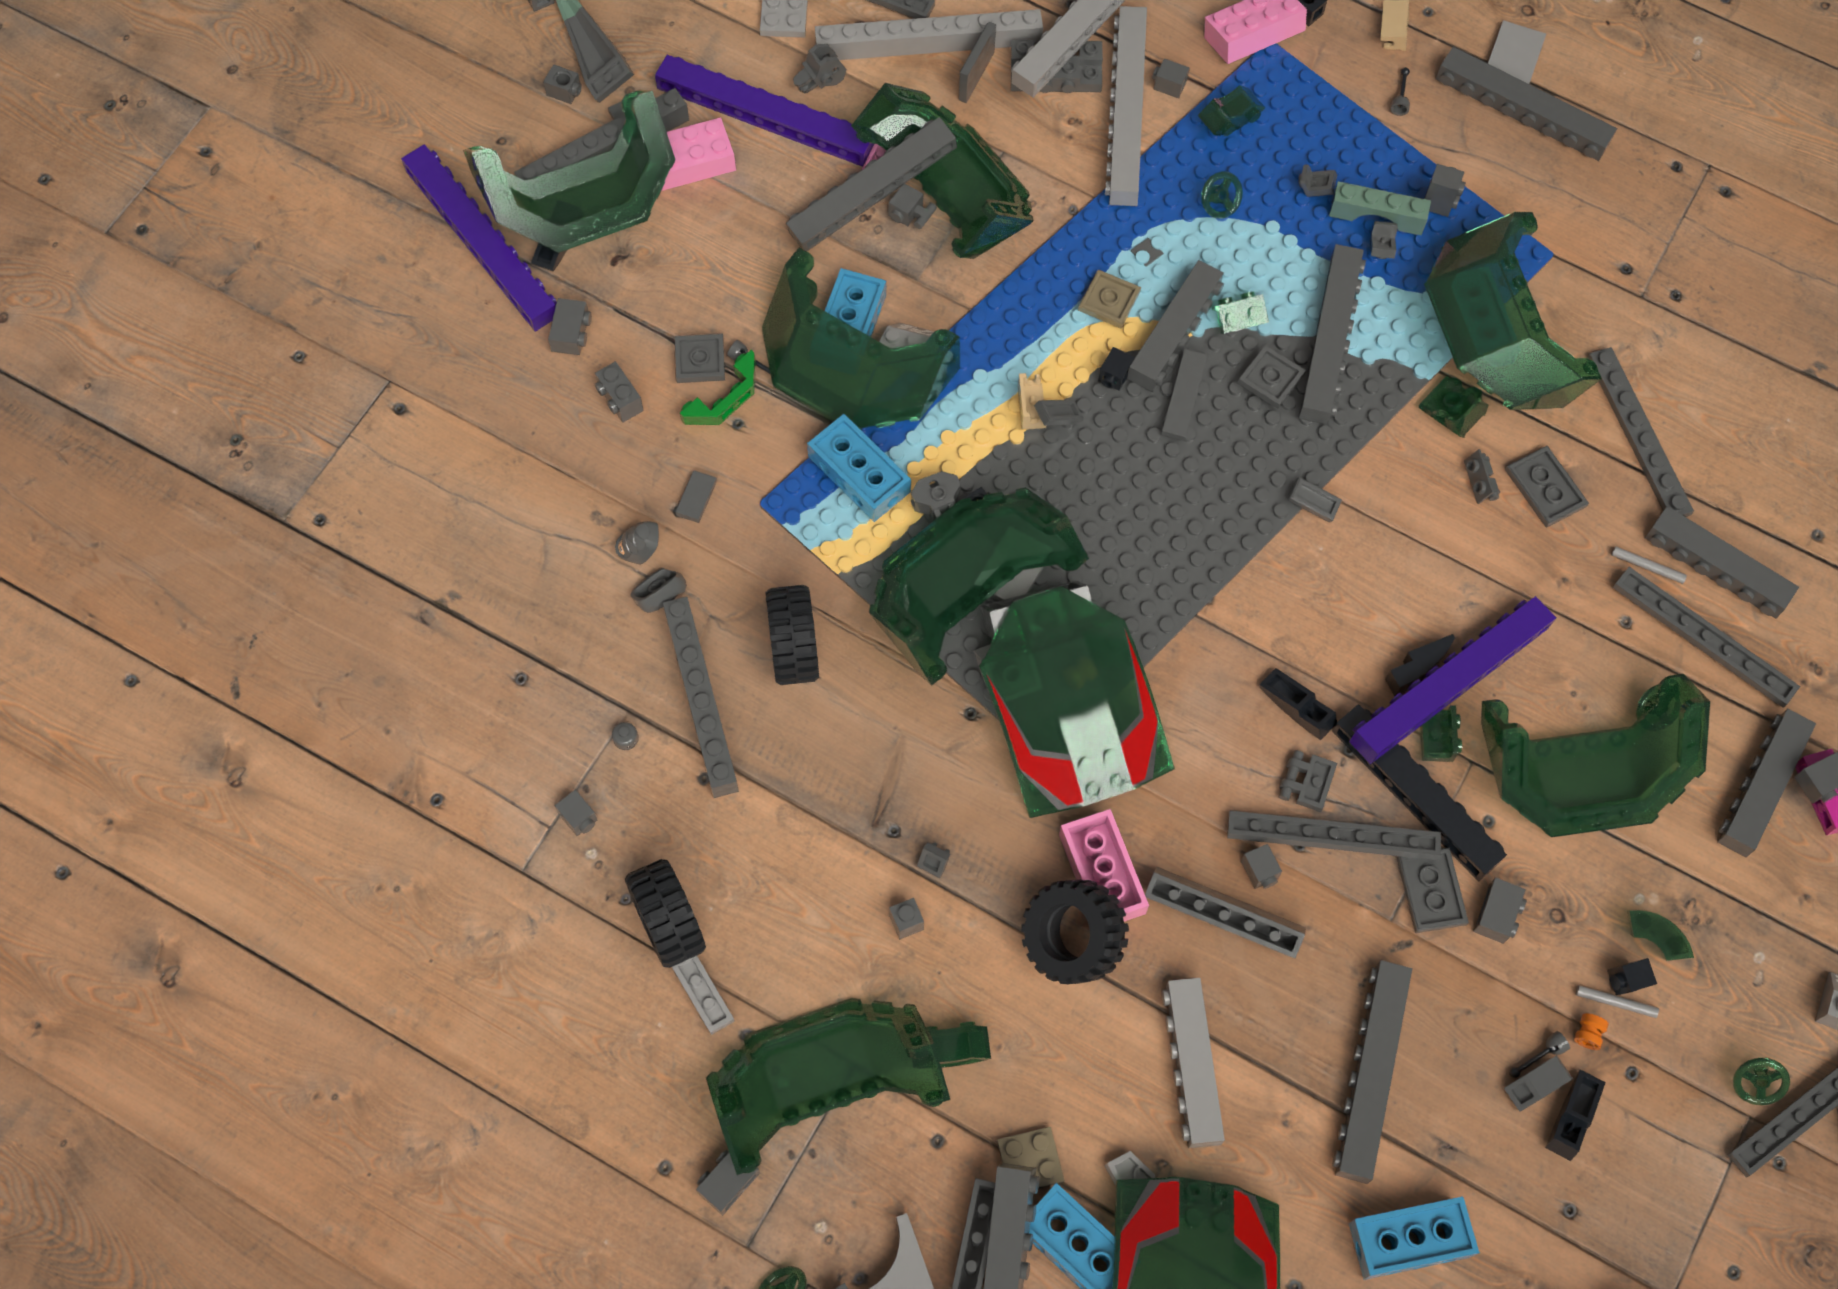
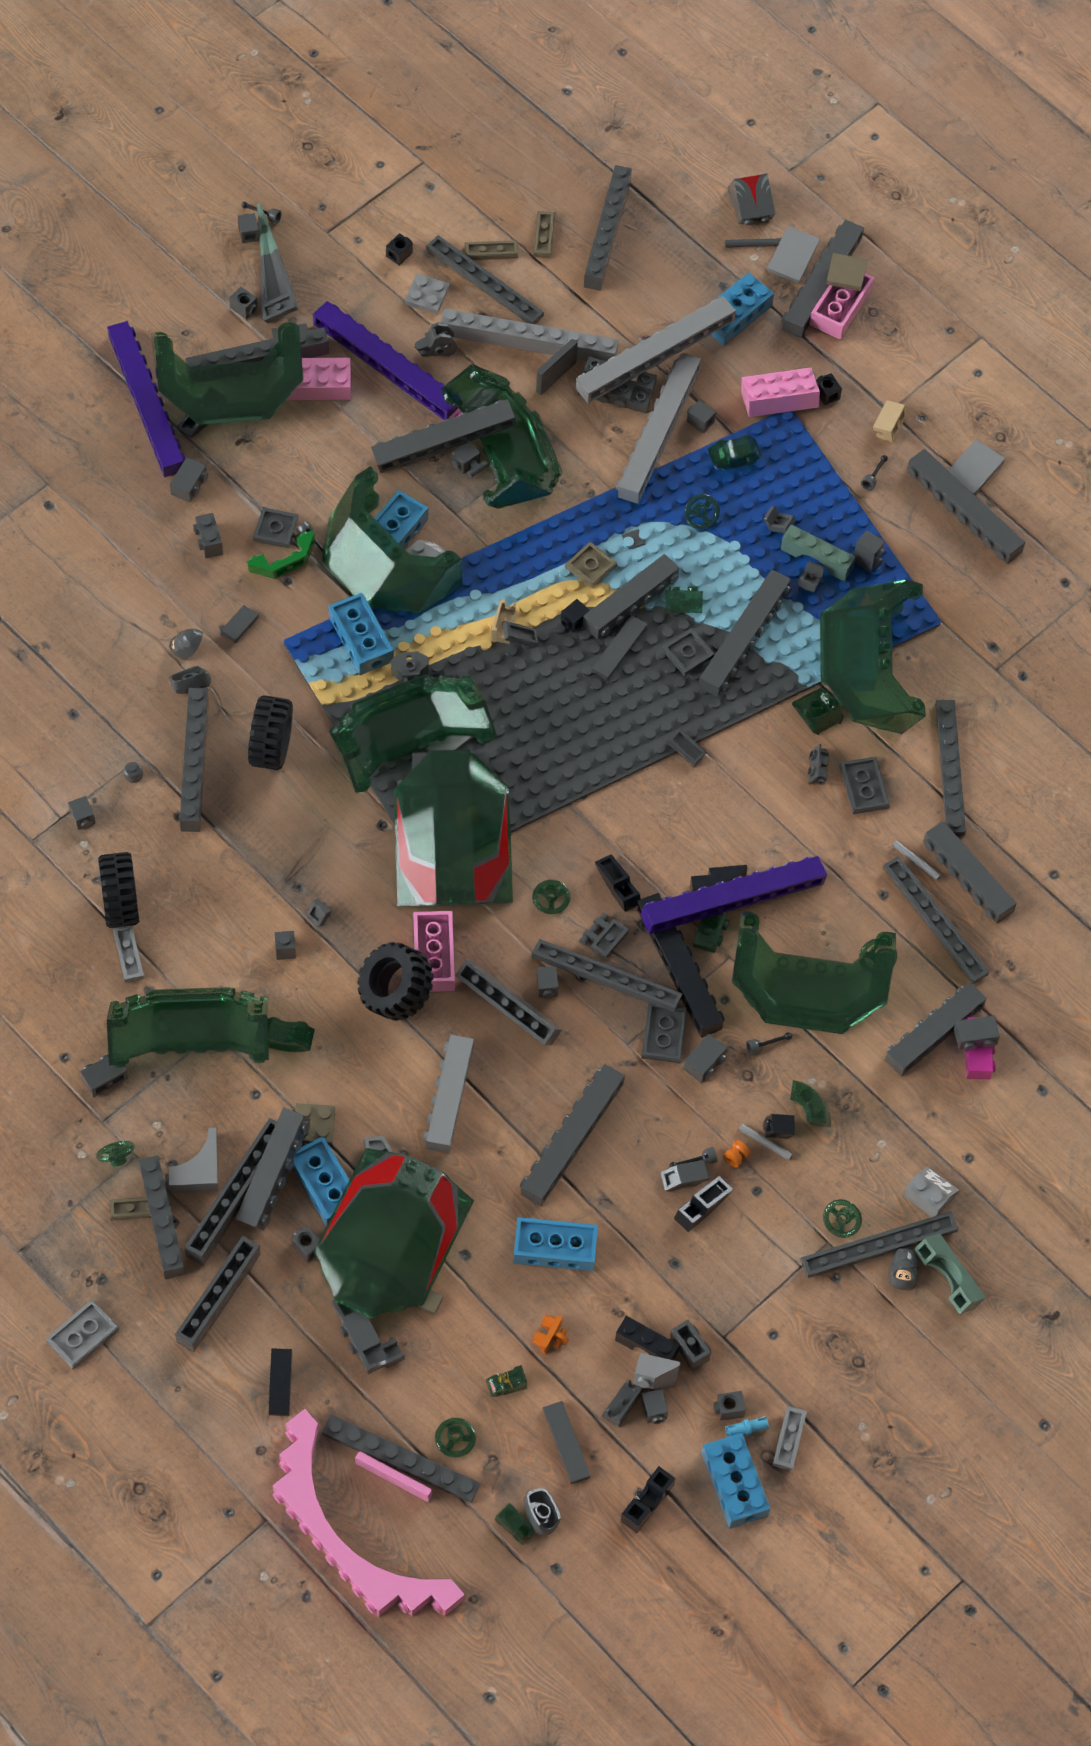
camera: 15 degrees right, 5 degrees down
(1224, 738) = (551, 888): none -> clear green piece
(1554, 875) = (755, 1046): none -> hinge

